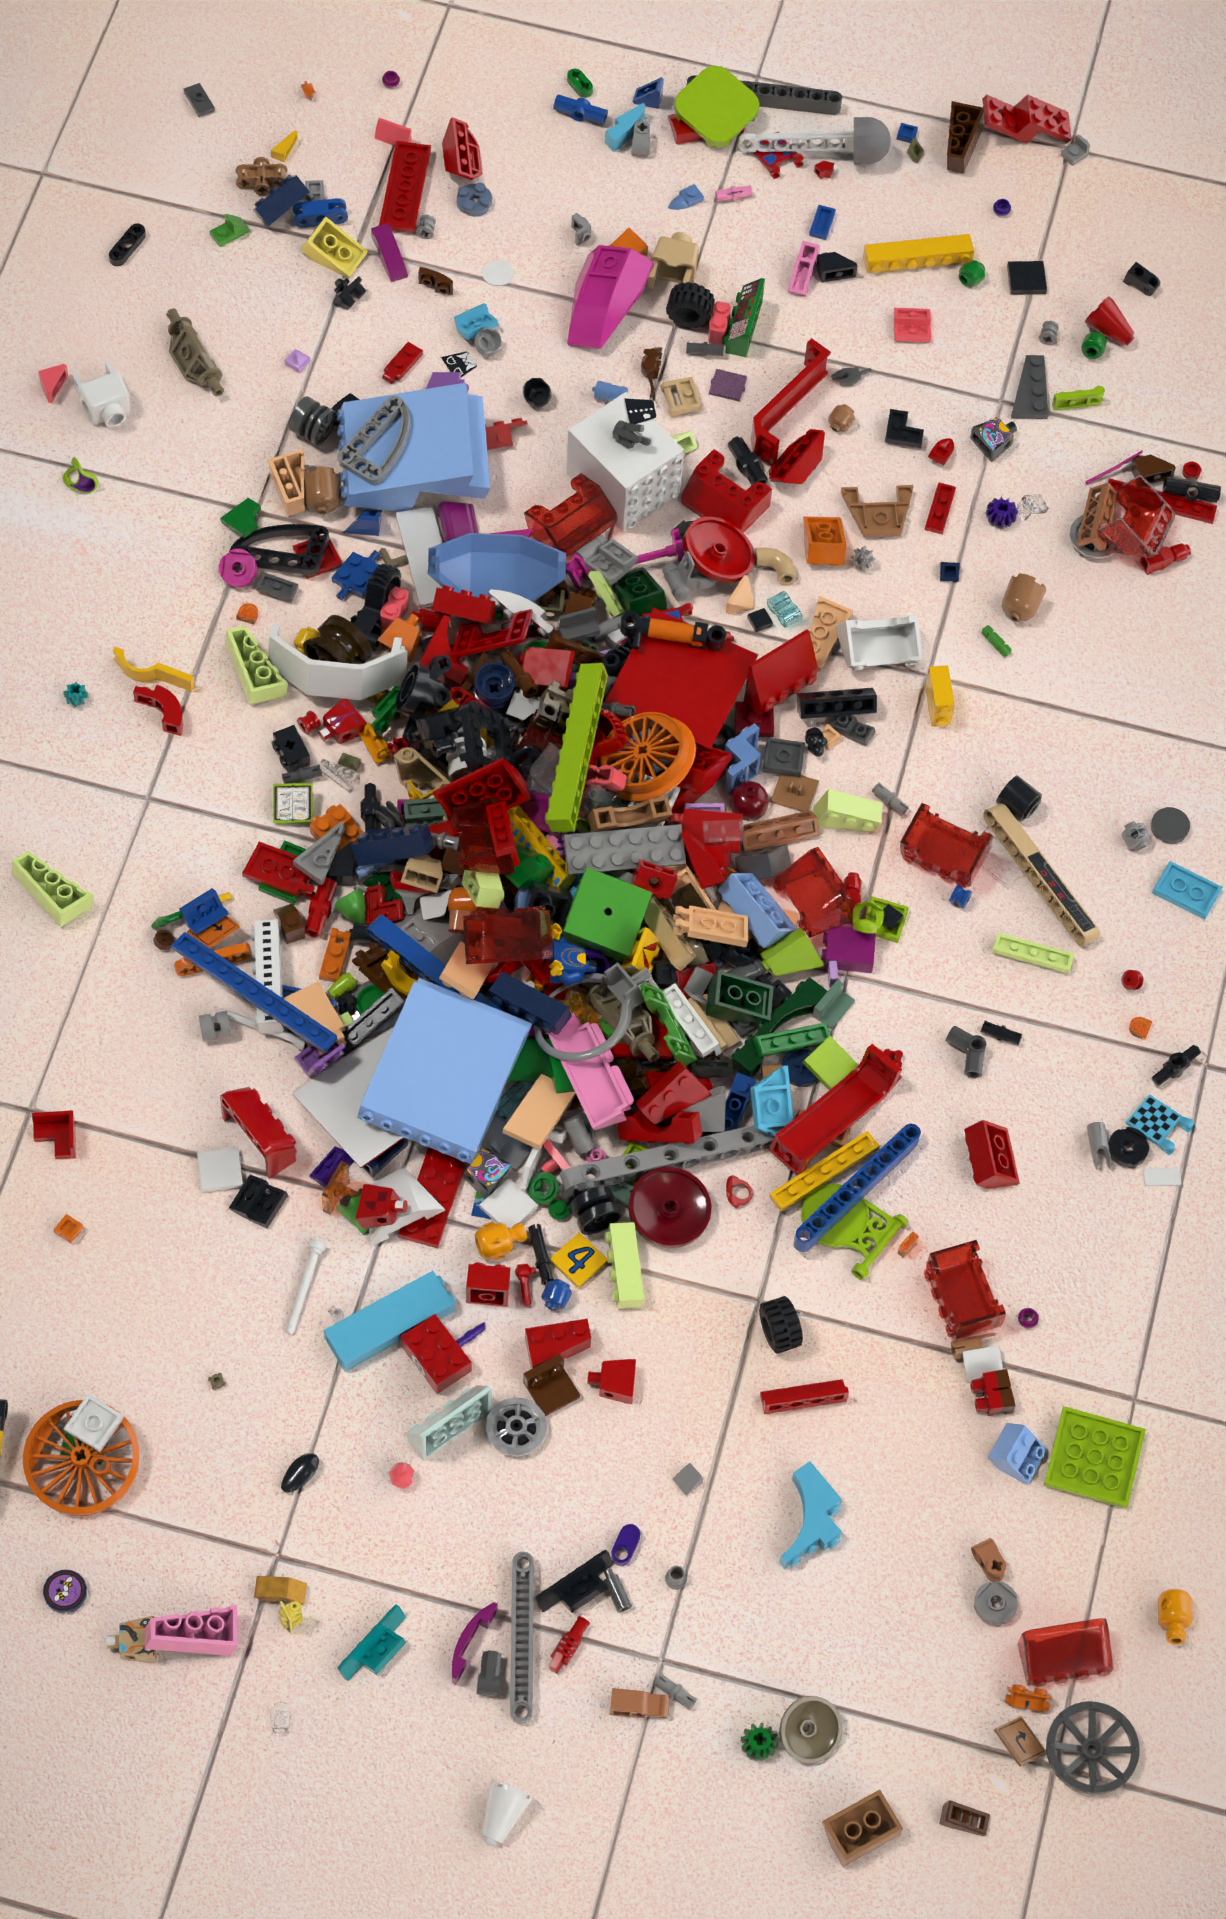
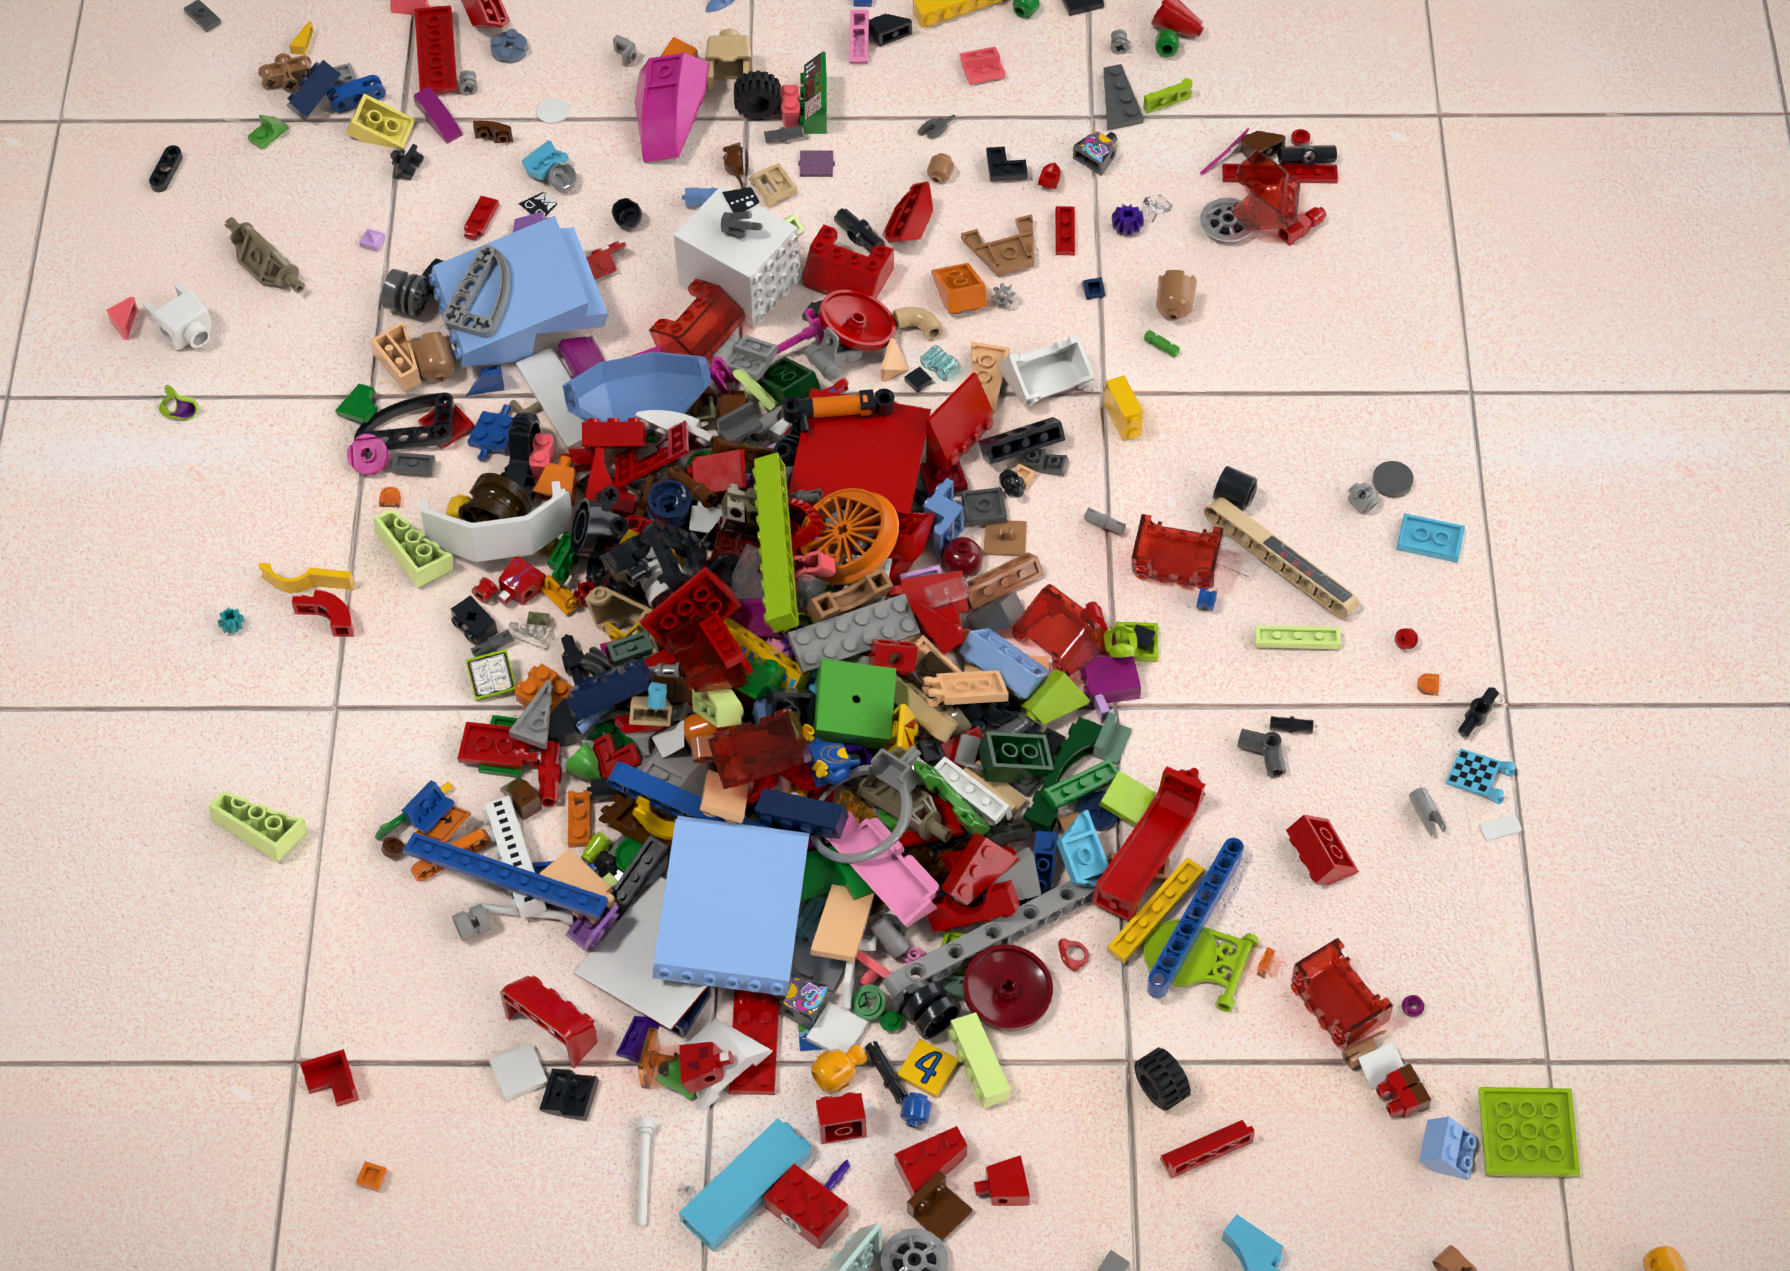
camera: 10 degrees left, 5 degrees down
(436, 858) = (659, 691): none -> medium azure leg
(523, 1273) = (873, 1096): red piece -> none
(763, 442) = (869, 206): red panel -> none
(847, 812) = (1066, 544): yellowish green wedge -> none
(1102, 513) = (1228, 196): nougat fence -> none
(1124, 1137) = (1468, 802): black plate -> none

